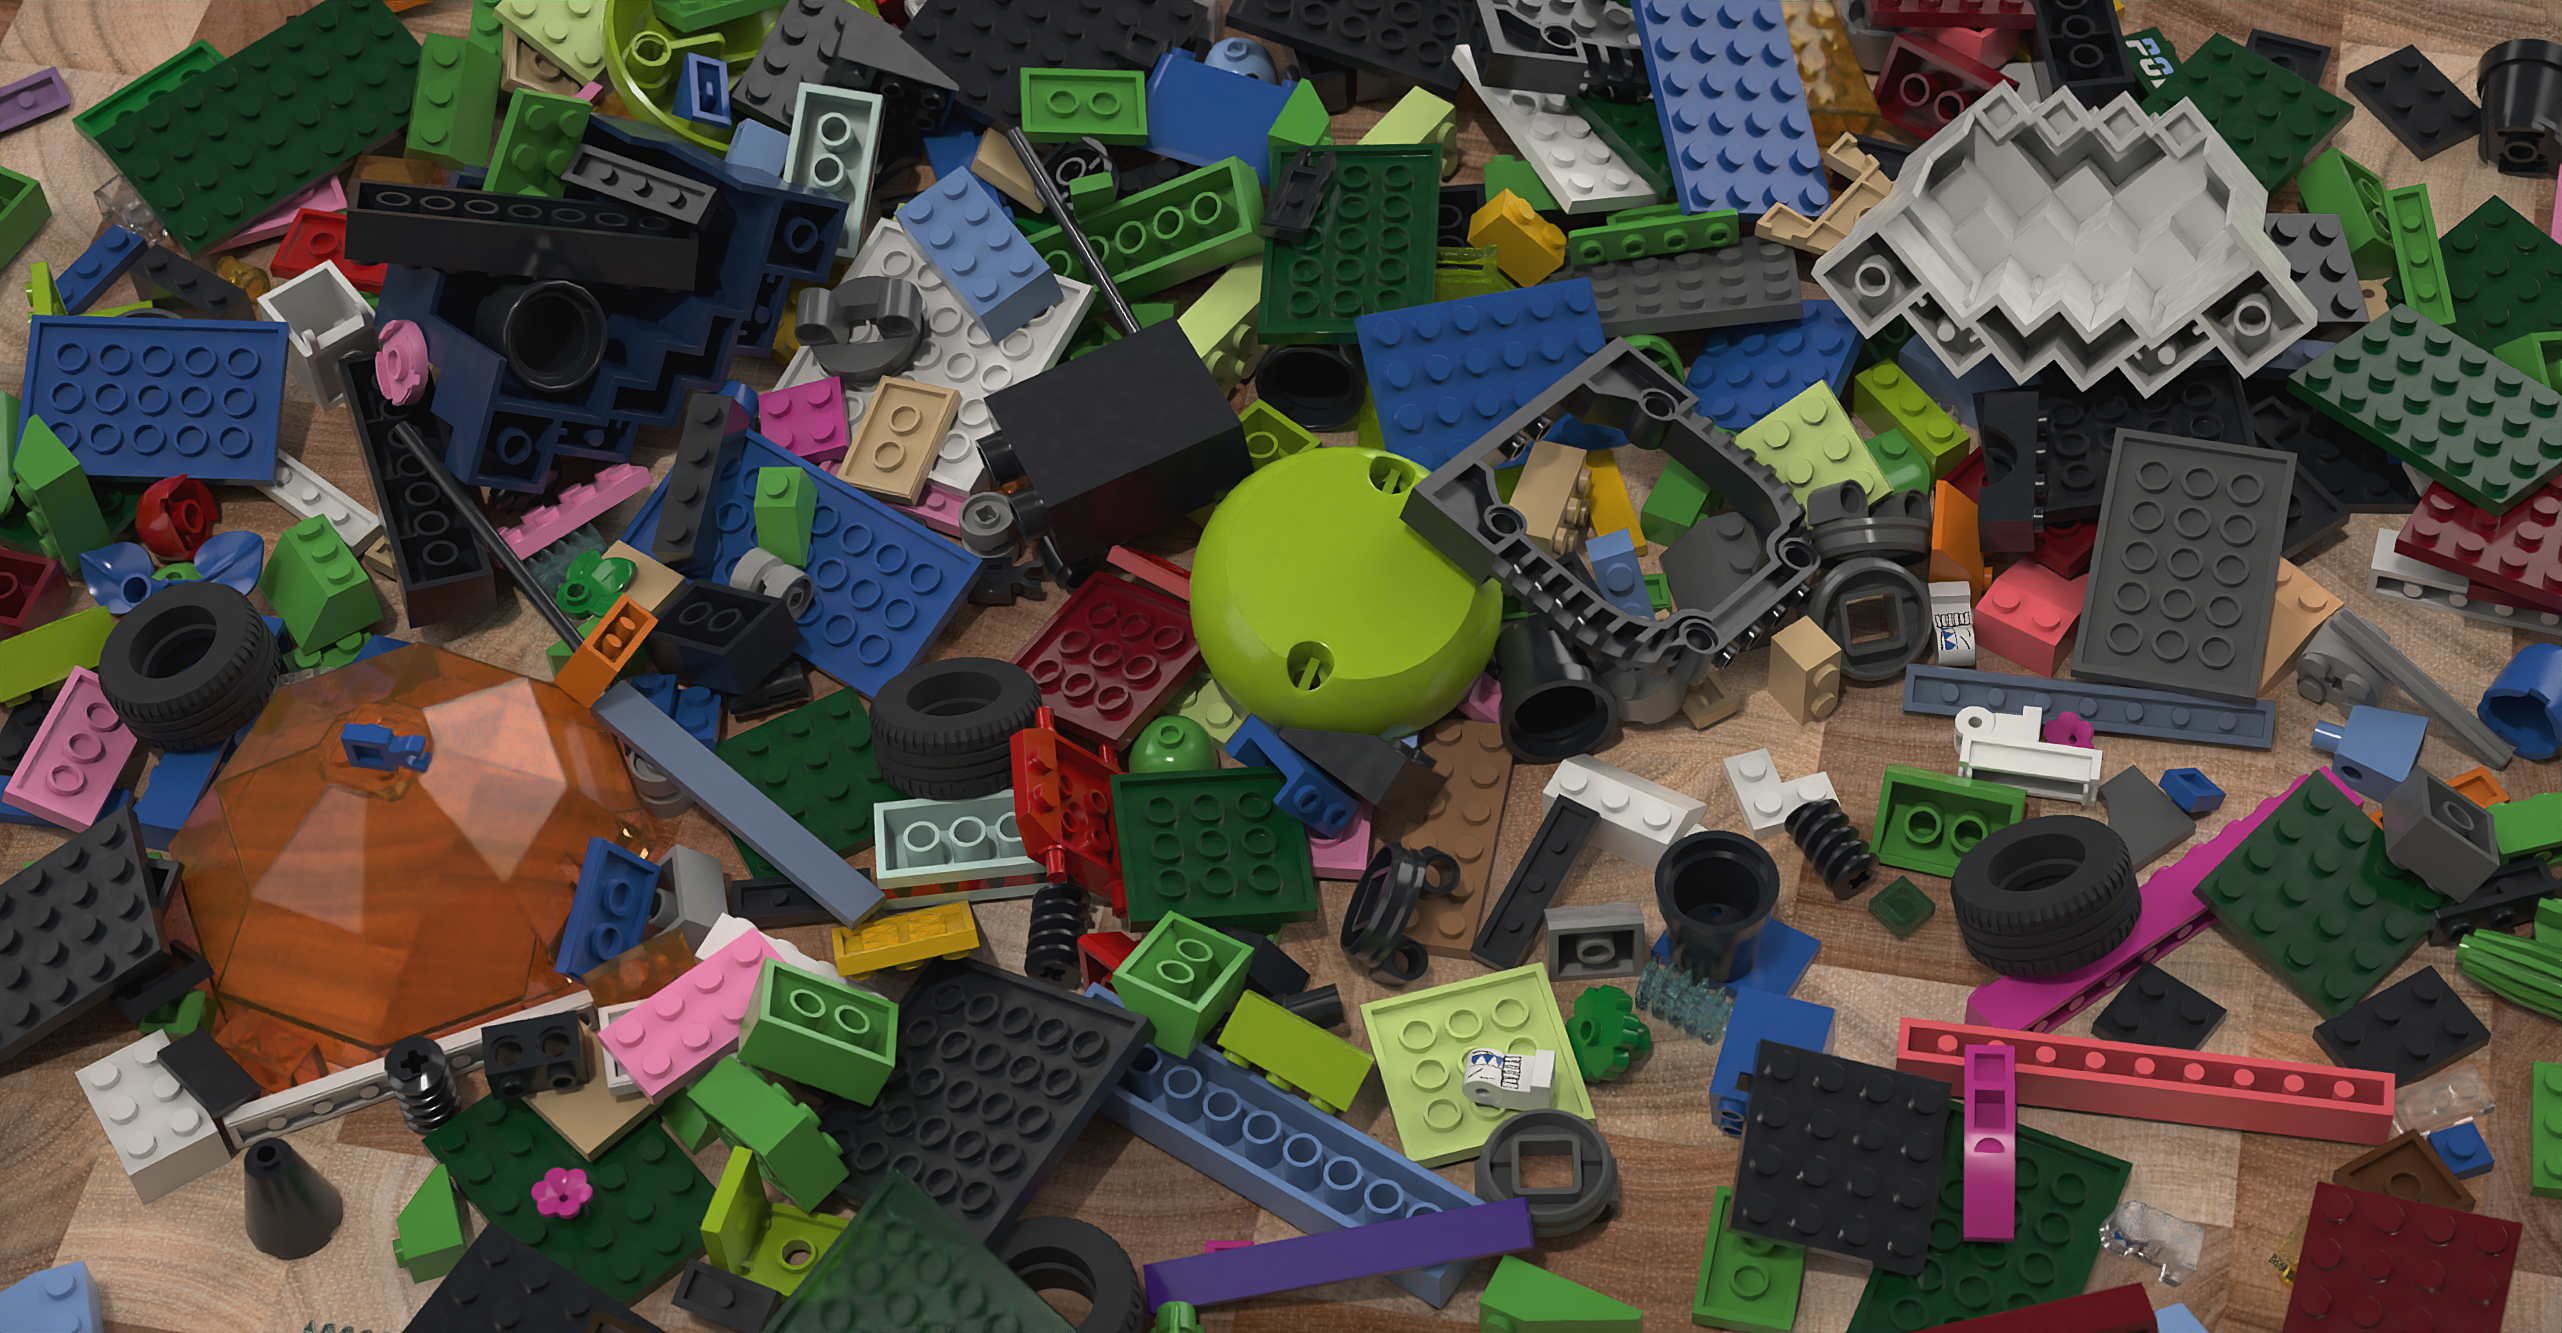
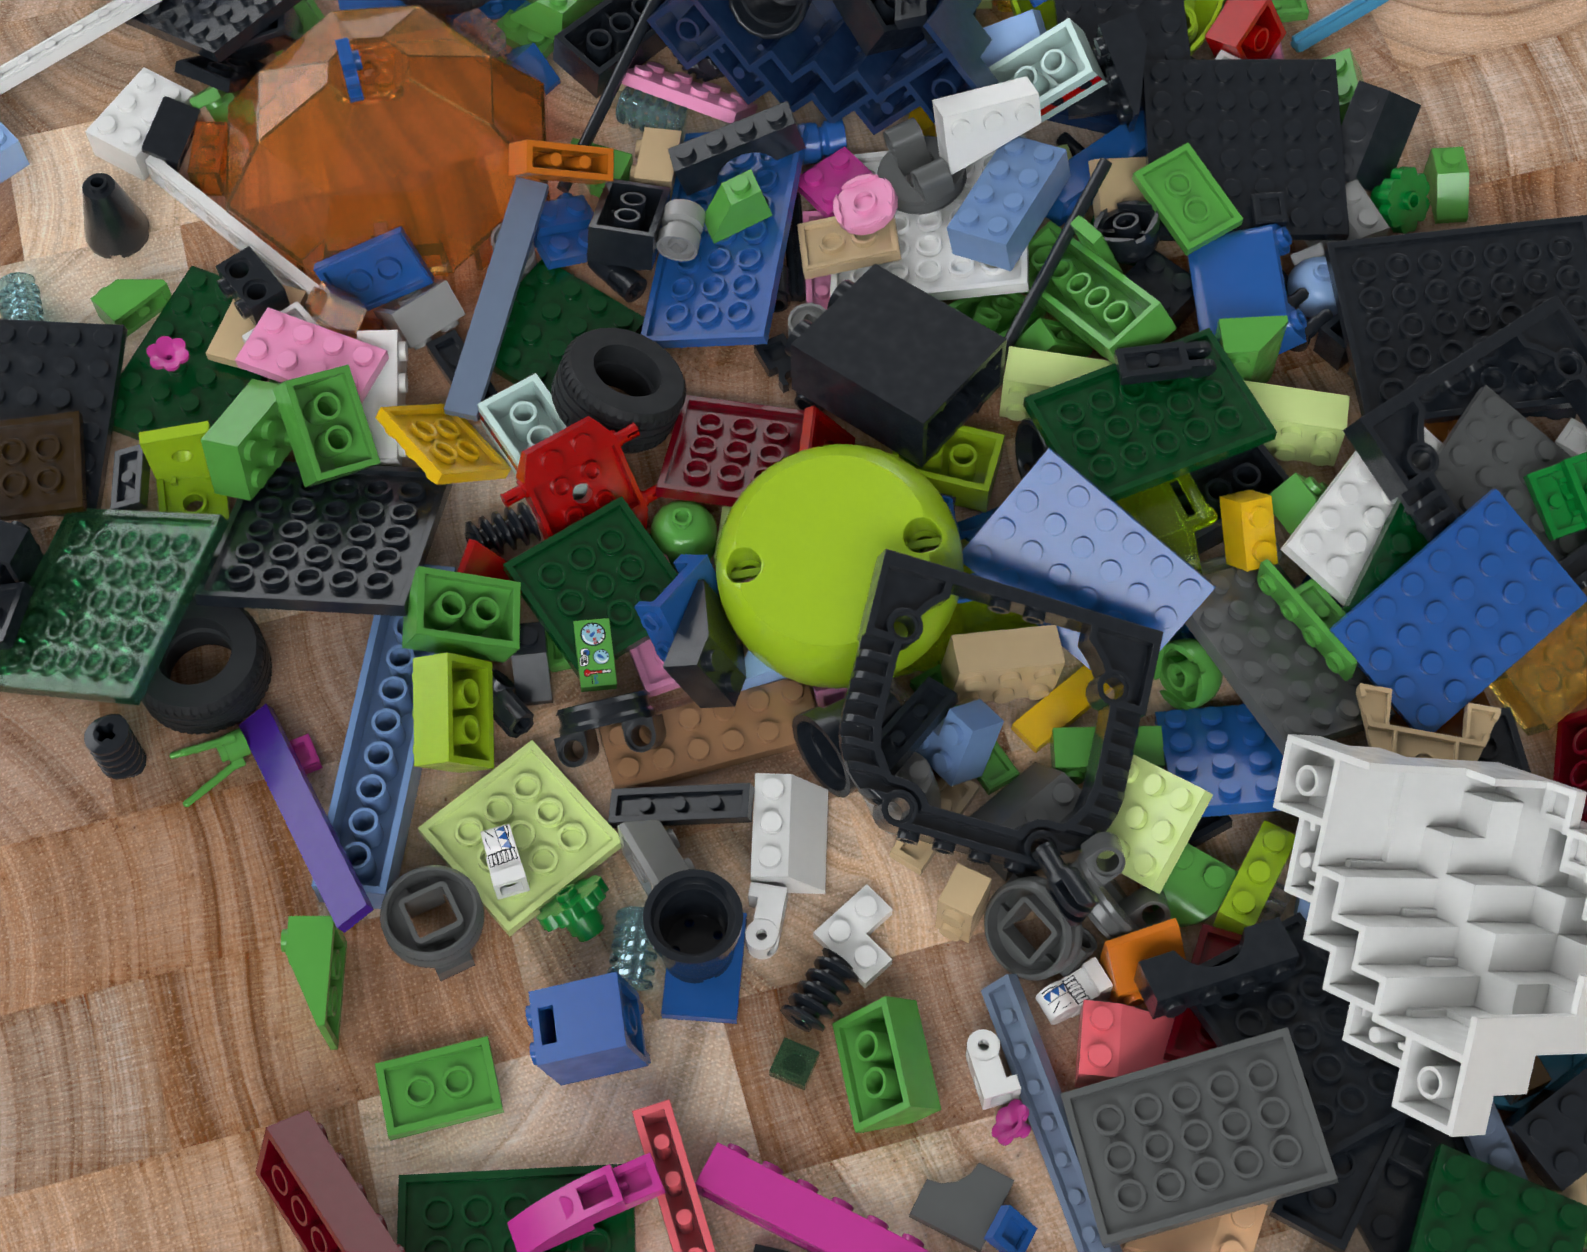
camera: 60 degrees right, 10 degrees up
(422, 1084) = (213, 237): black piece -> none
(593, 585) = (635, 137): green plate -> none
(871, 395) = (865, 204): none -> bright pink tile
(873, 217) = (984, 120): none -> white wedge
(1304, 880) = (595, 655): none -> bright green tile
(1839, 1158) = (517, 1105): black plate -> none
(1861, 542) = (1065, 885): none -> black arm
(2034, 766) = (967, 1104): white container -> none
(2046, 896) = (816, 1196): black tyre -> none

